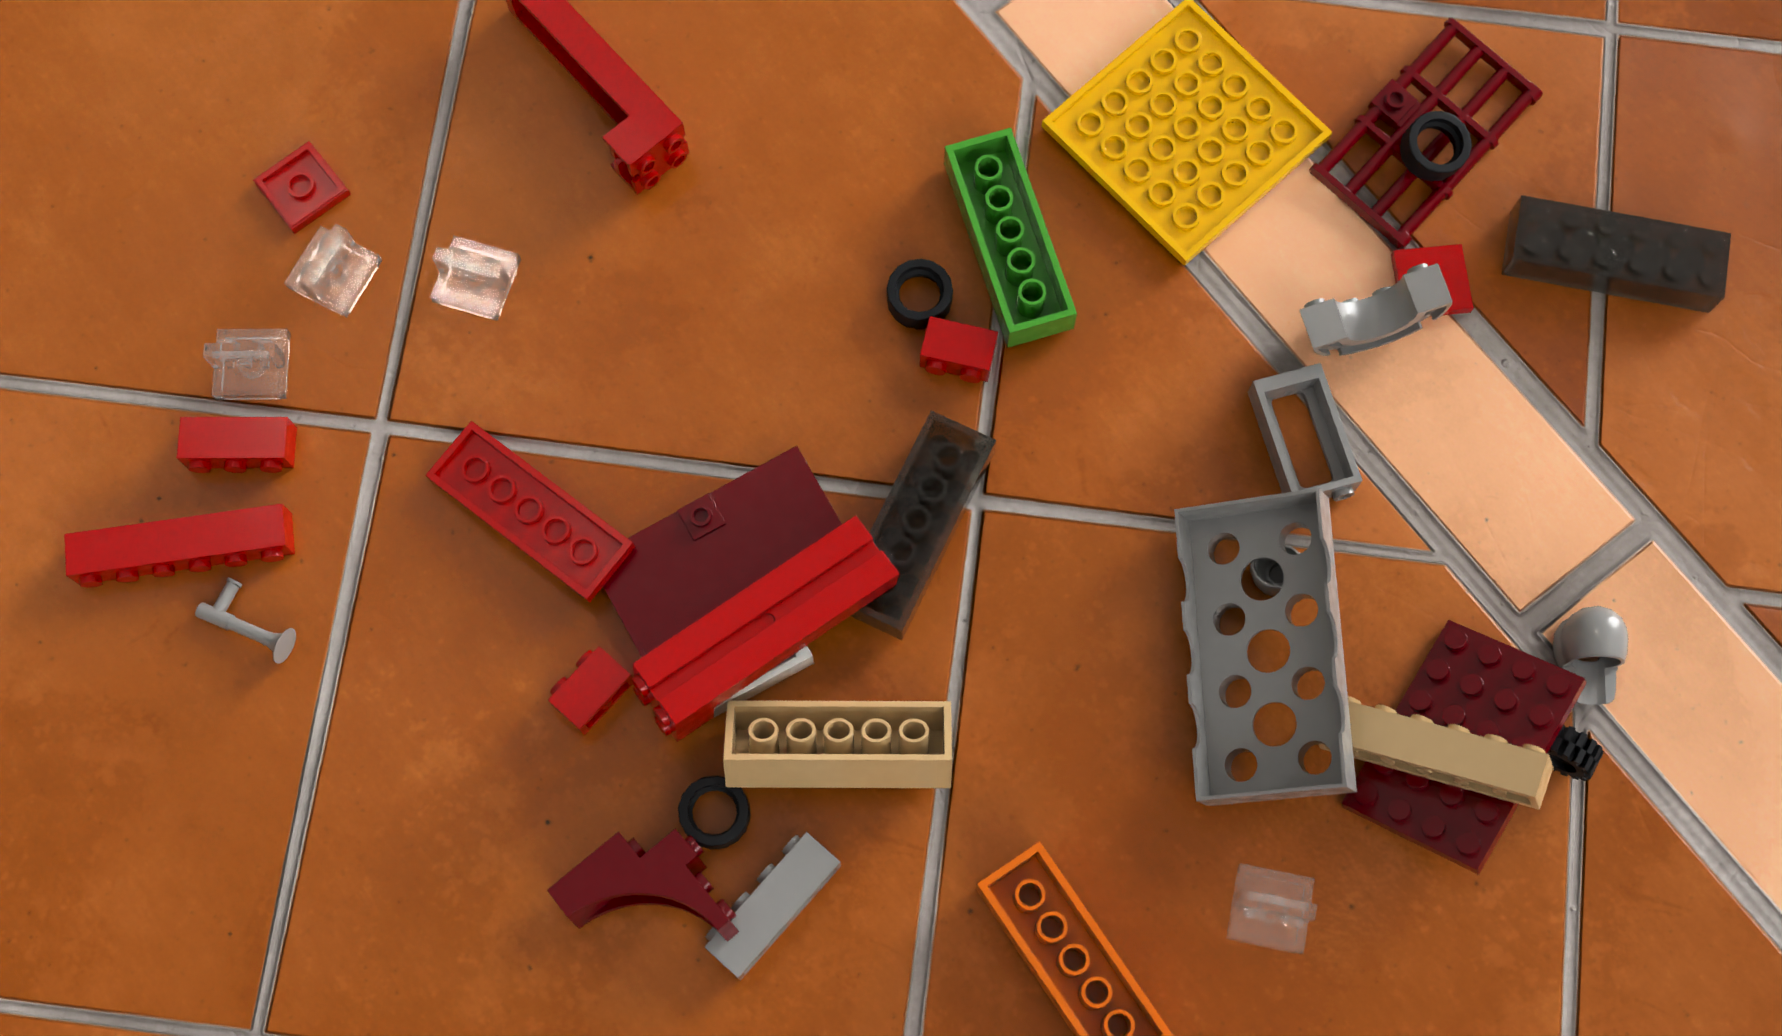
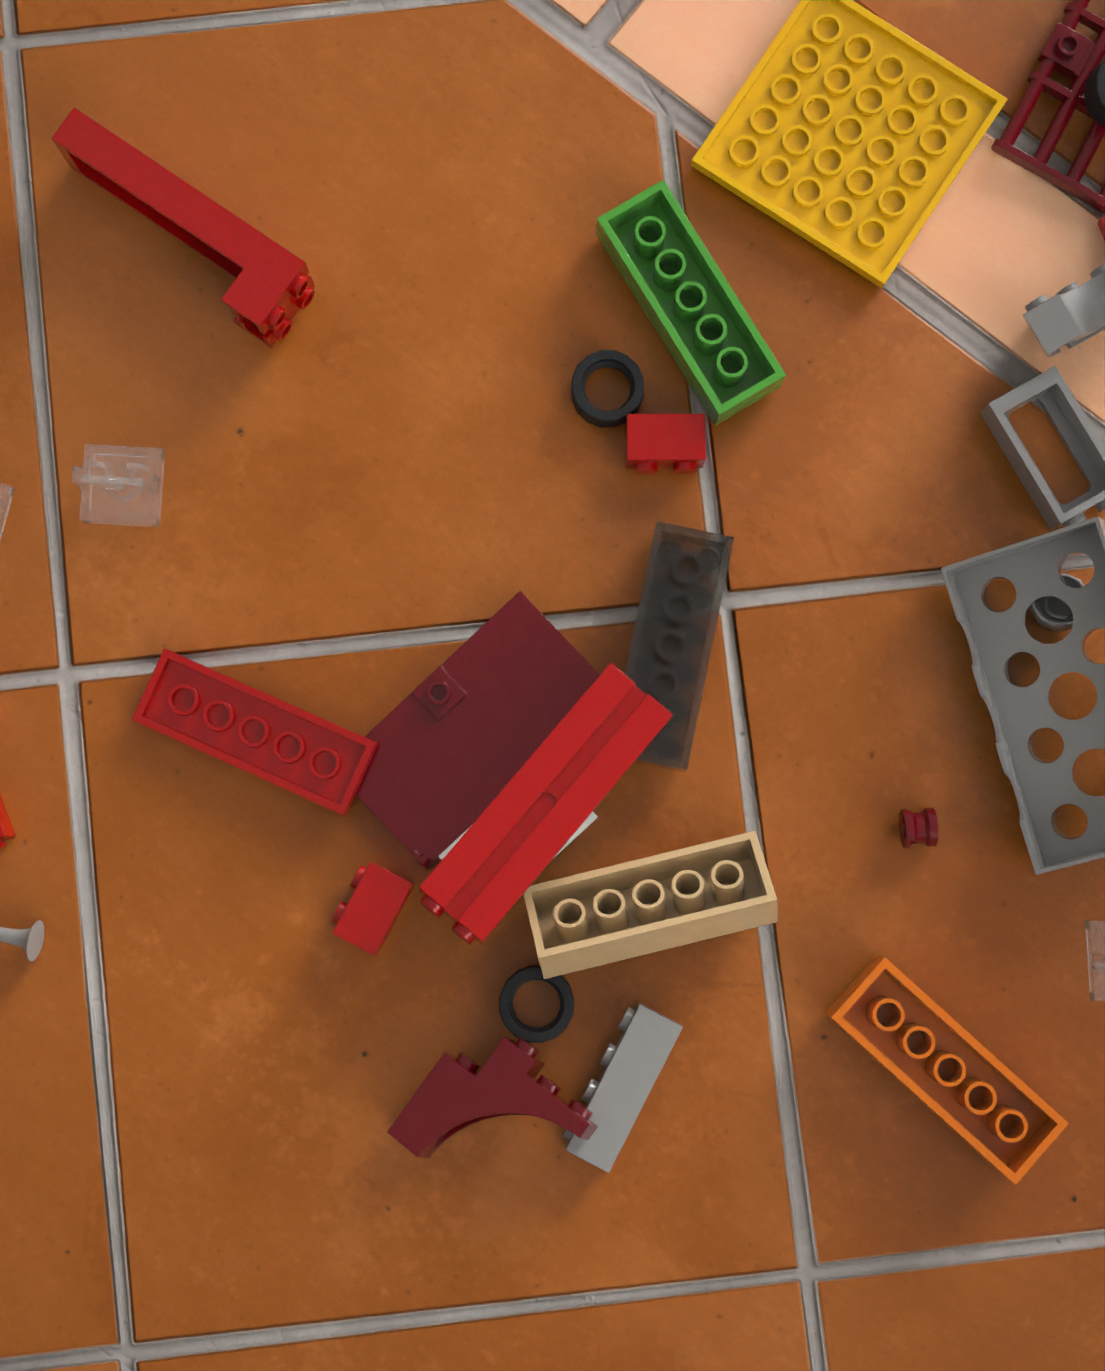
camera: 15 degrees left, 10 degrees up
(1102, 739) = (918, 827): none -> dark red wheel

